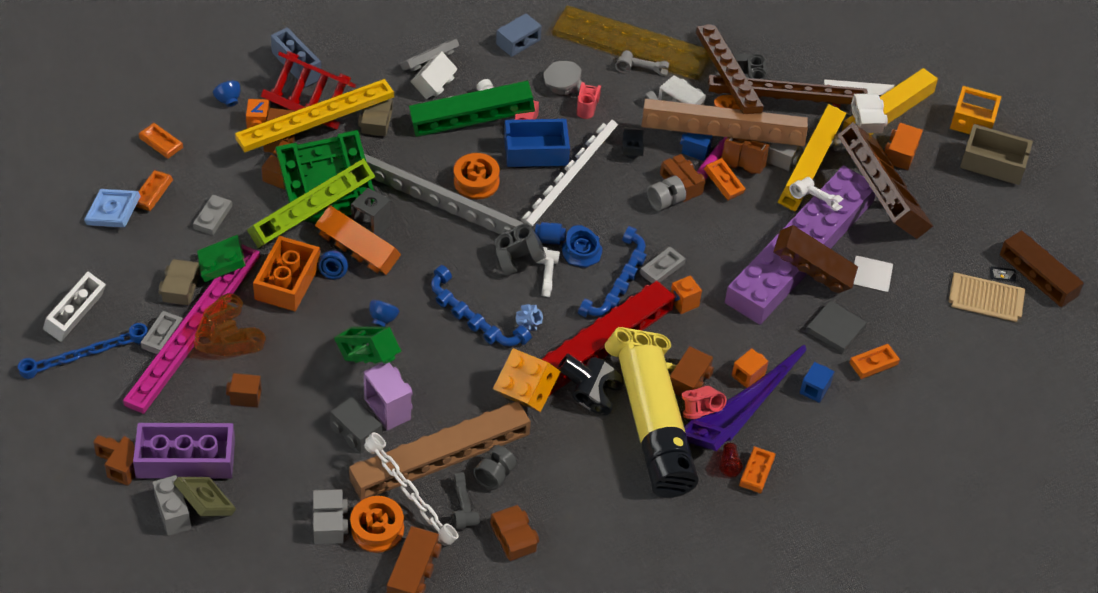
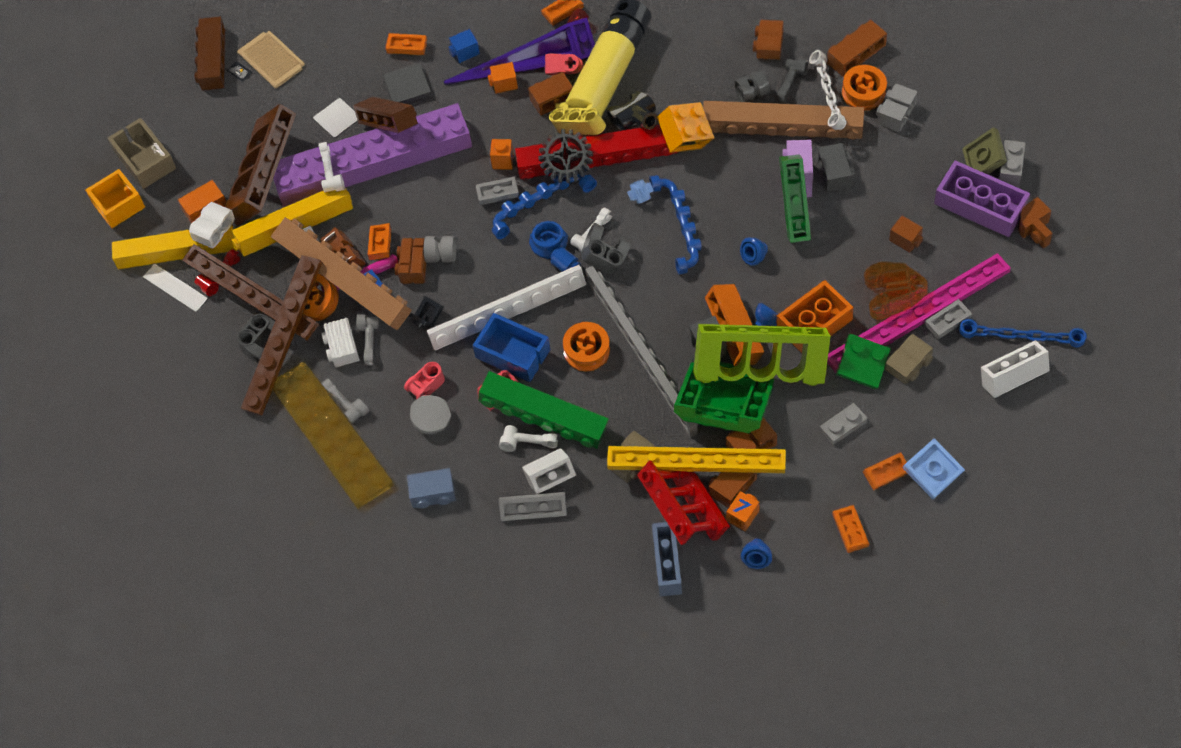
camera: 135 degrees left, 10 degrees up
(617, 298) = (573, 155): none -> dark grey gear

